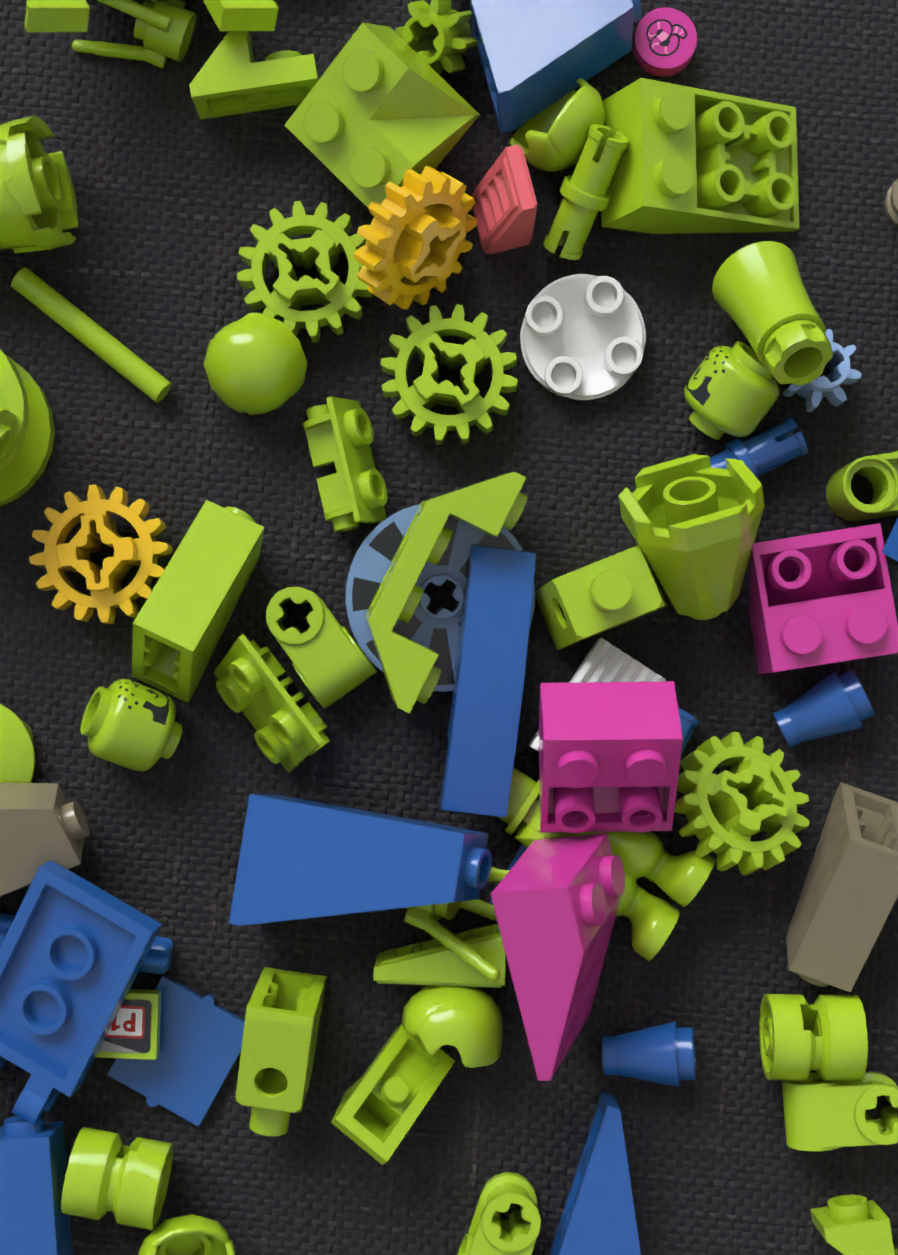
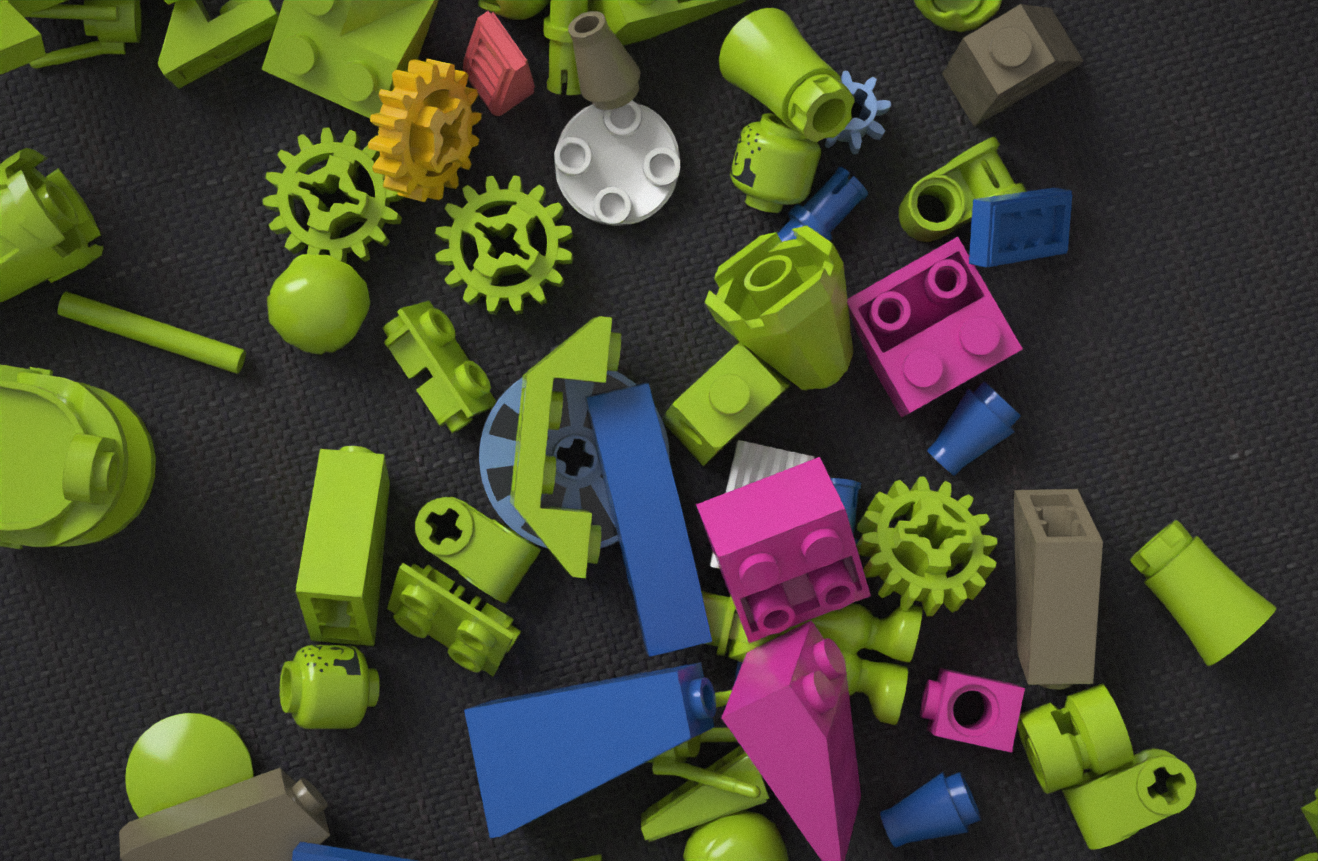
camera: 20 degrees left, 0 degrees up
(75, 556) = (225, 511): yellow gear -> none
(605, 238) = (603, 65): none -> dark tan cone
(746, 992) = (1000, 715): none -> dark pink brick

